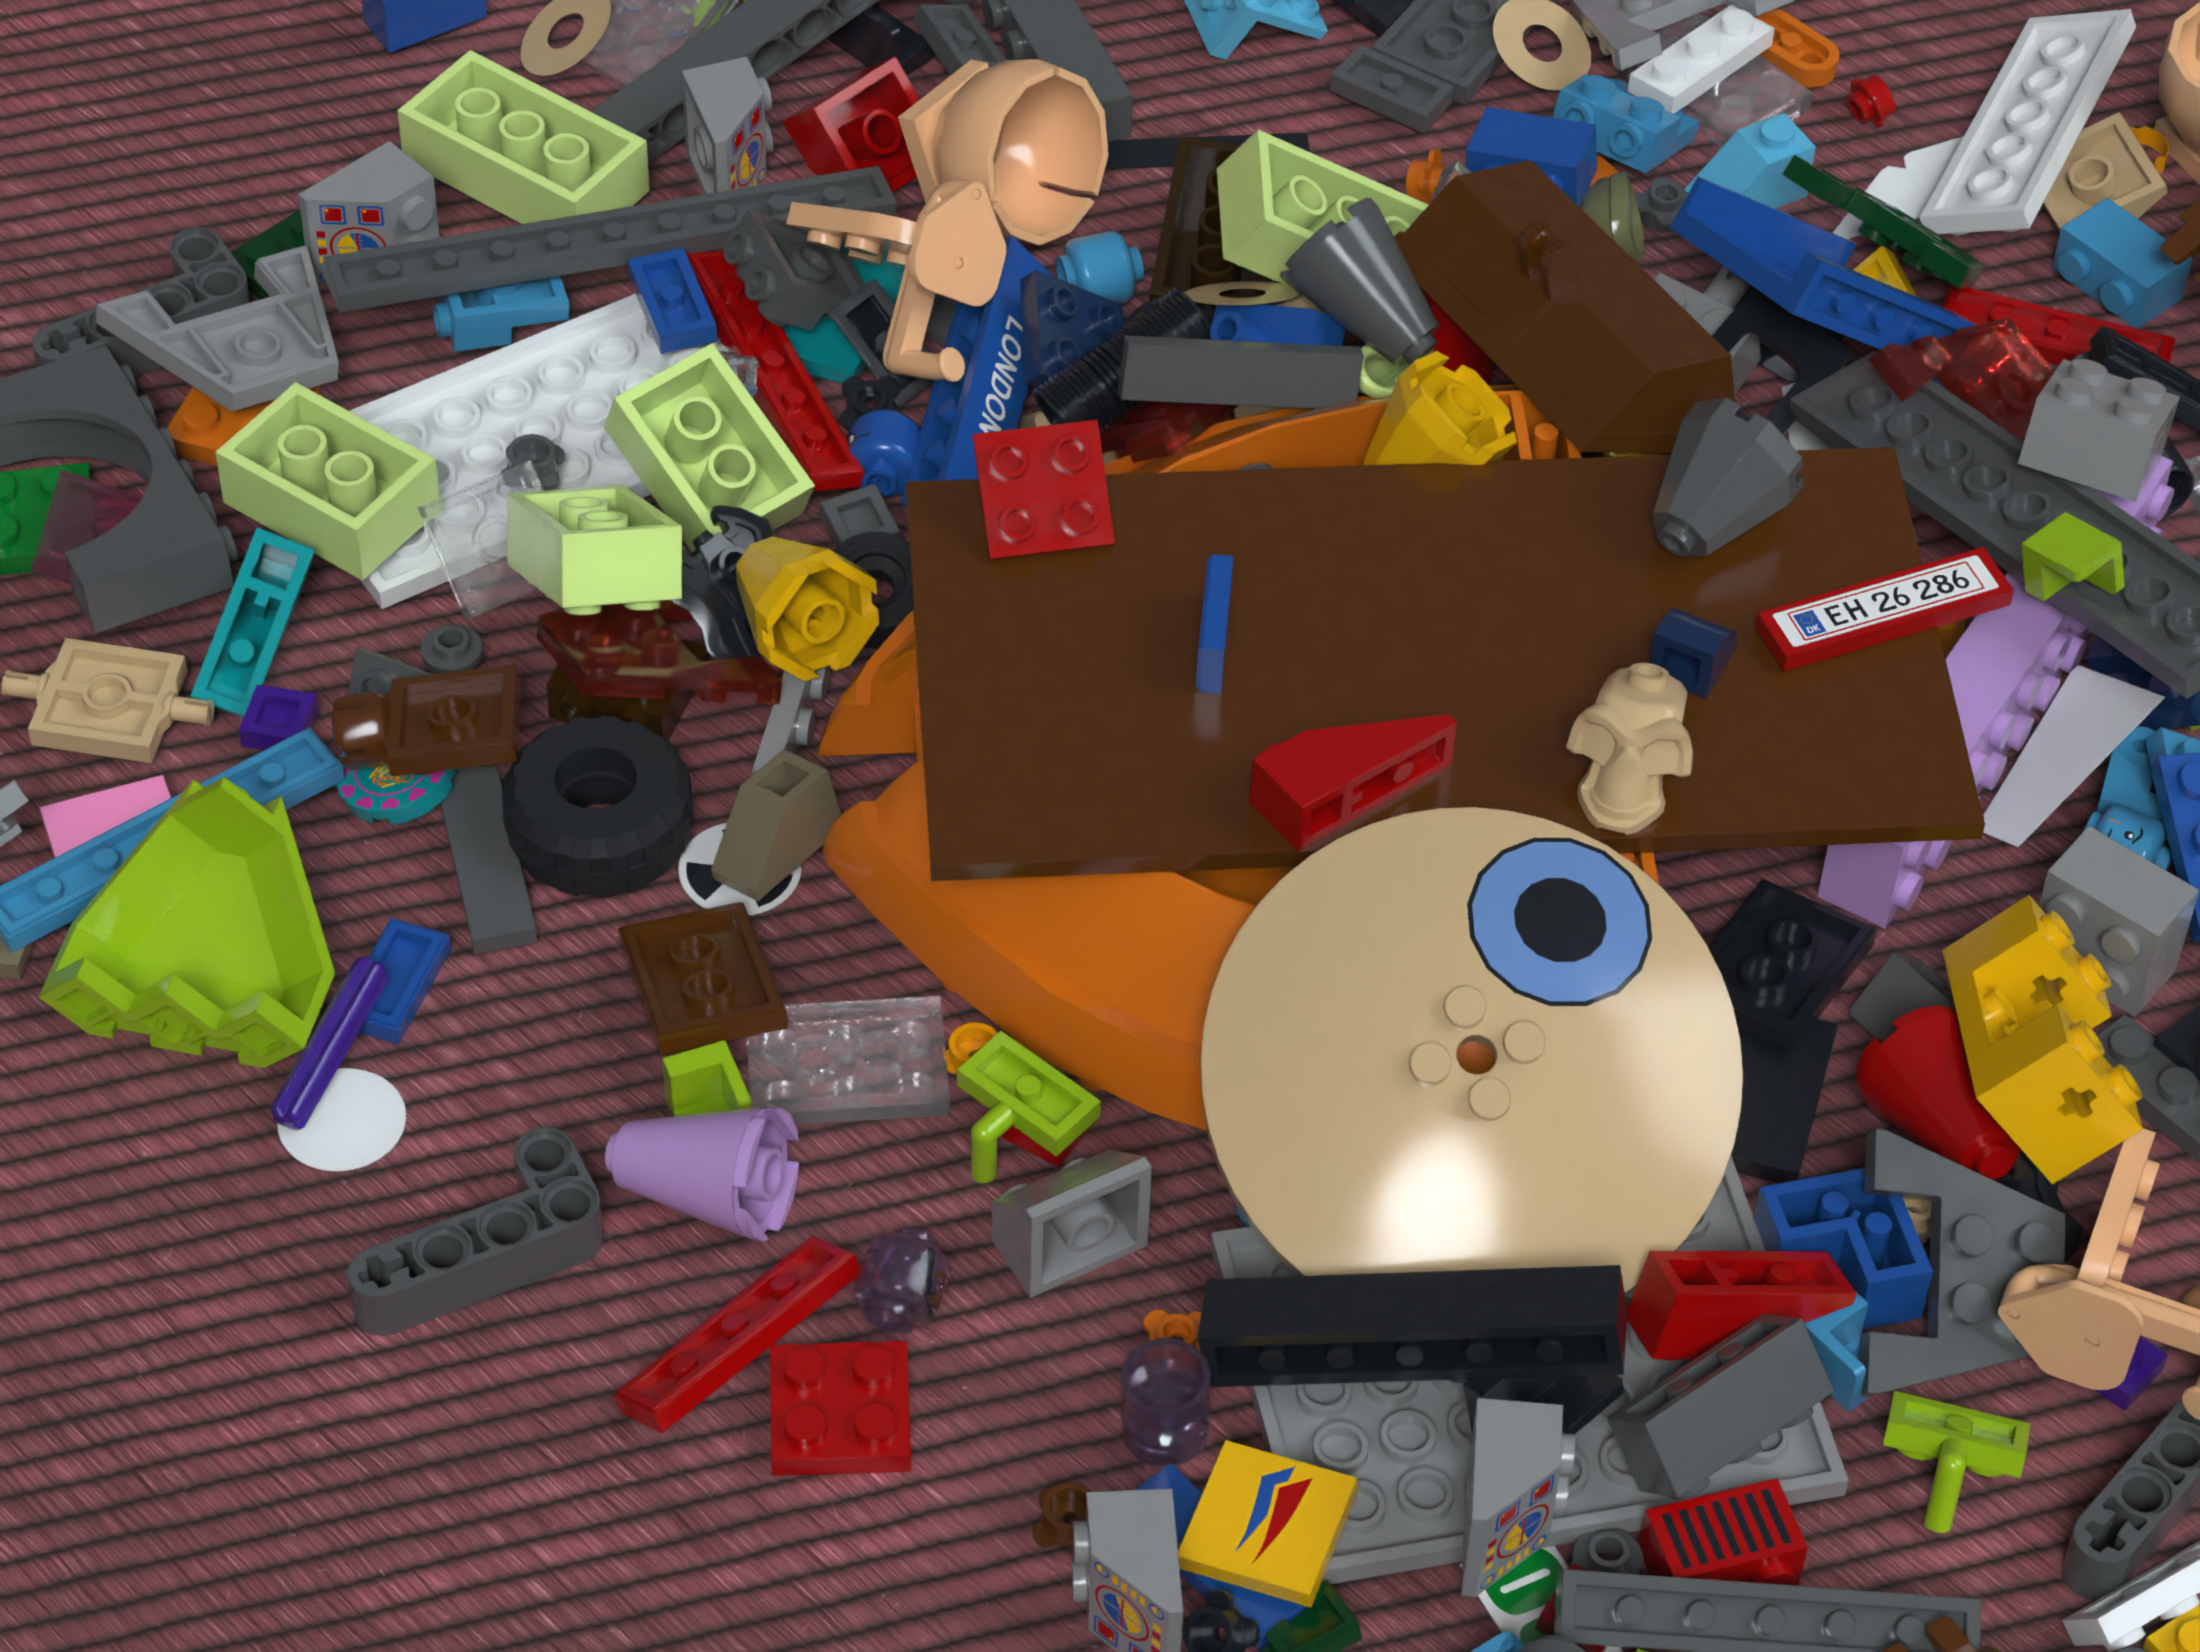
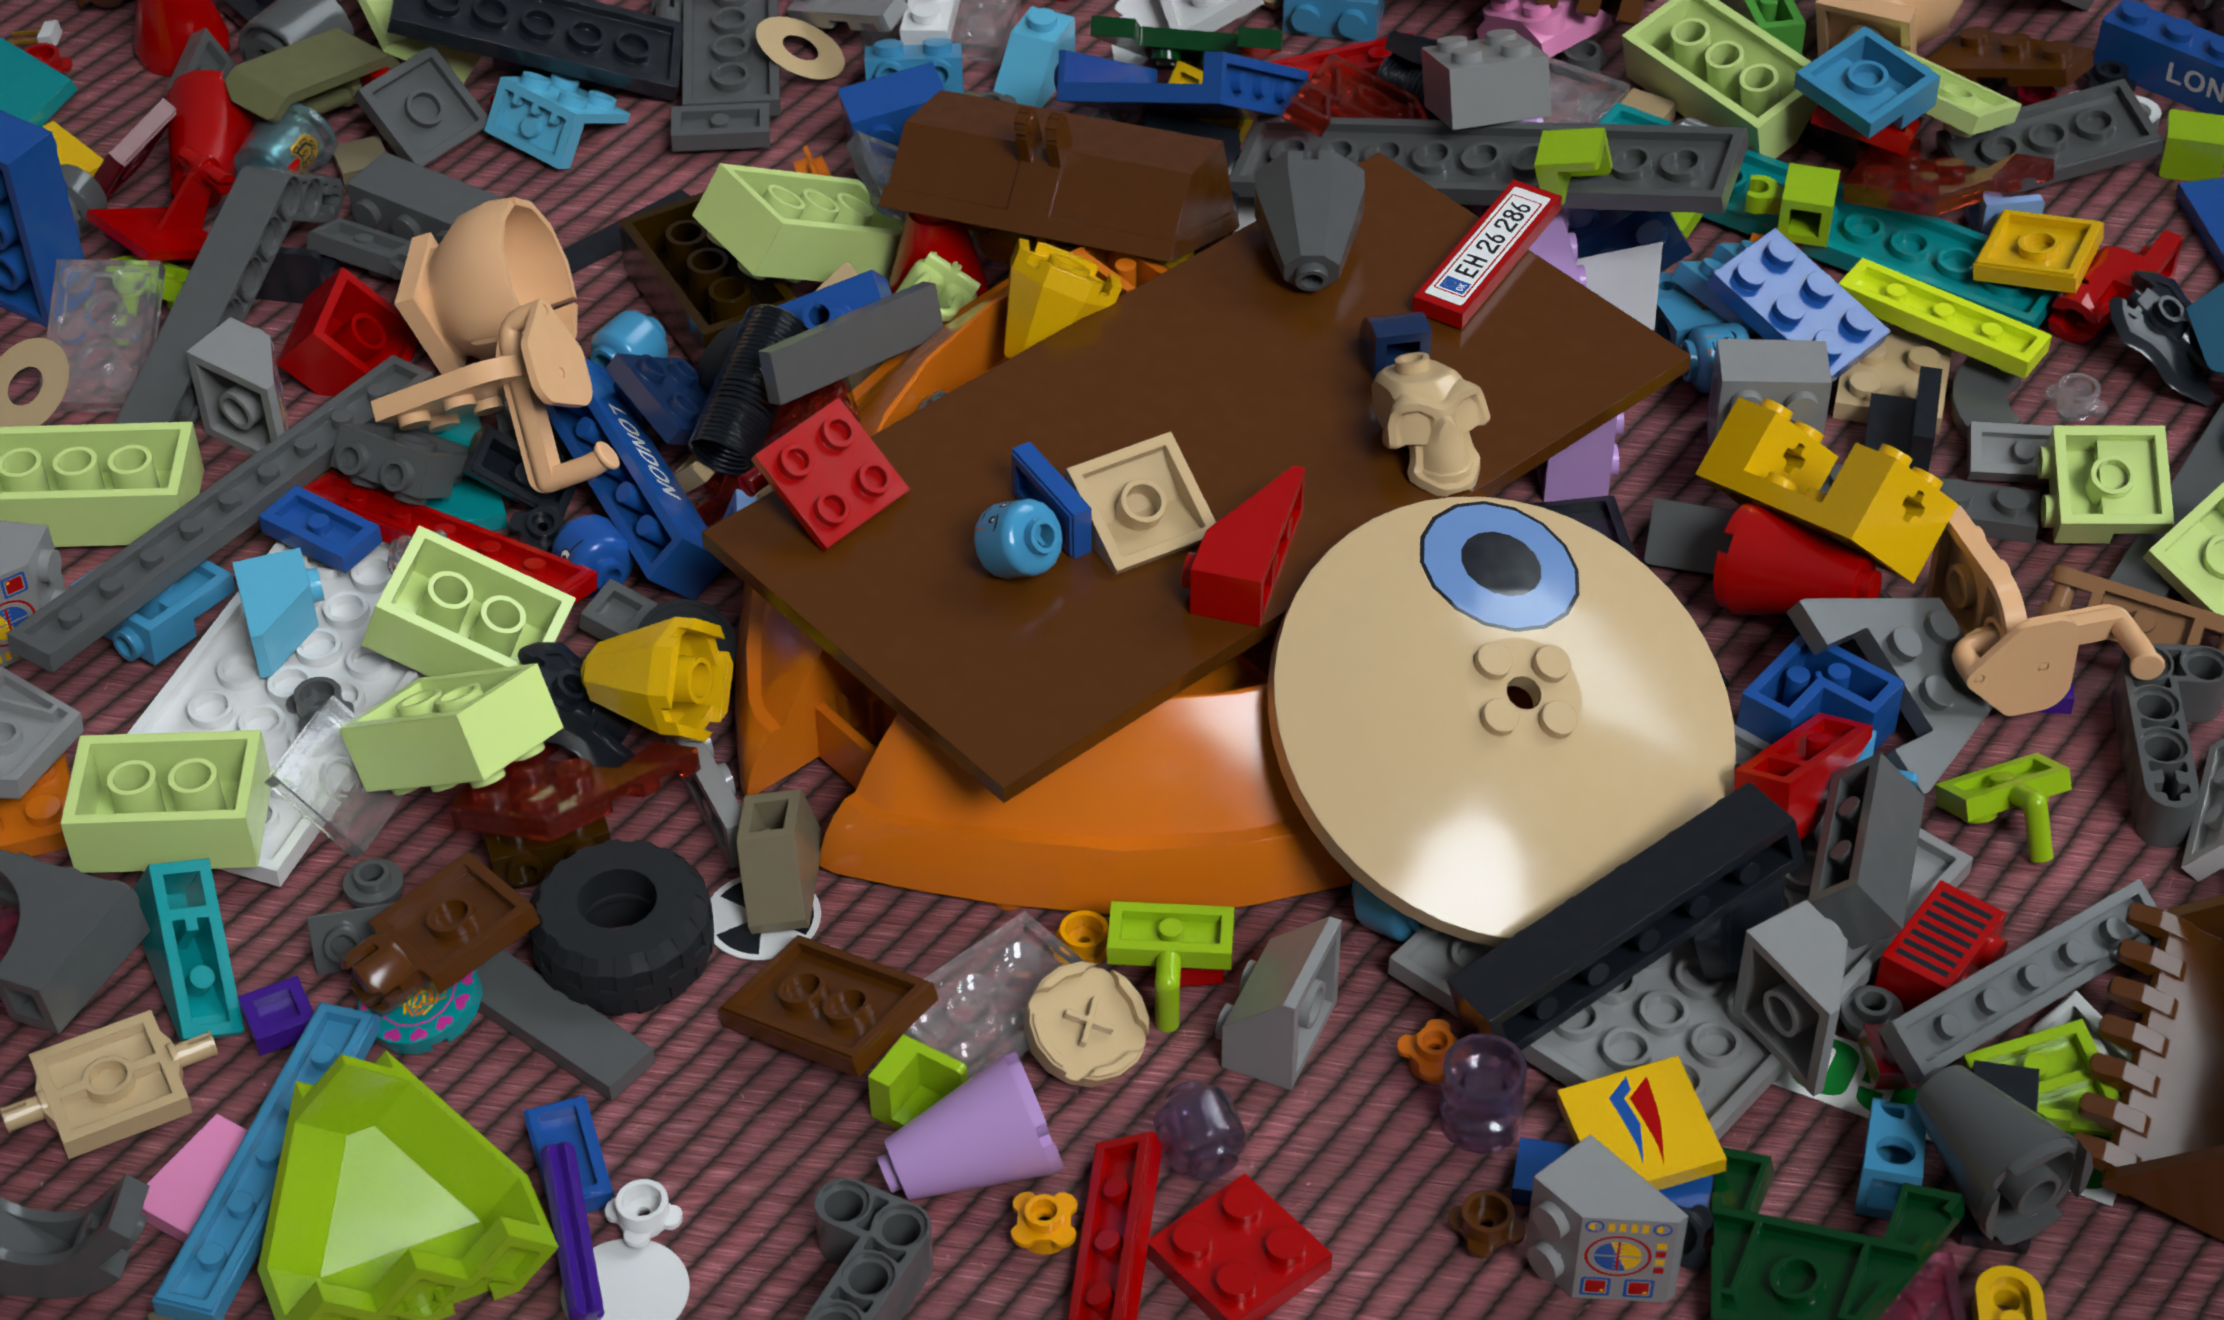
camera: 35 degrees left, 5 degrees down
(401, 1049) = (639, 1198): none -> white plate
(570, 353) = (278, 605): none -> medium azure slope
(711, 1290) = (1044, 1236): none -> light orange plate
(895, 1128) = (1086, 1024): none -> tan tile
(1123, 645) = (1018, 539): none -> dark azure head
(1210, 293) = (813, 283): tan piece -> none
(1291, 670) = (1141, 503): none -> tan slope
(1365, 284) = (894, 235): dark grey cone -> none

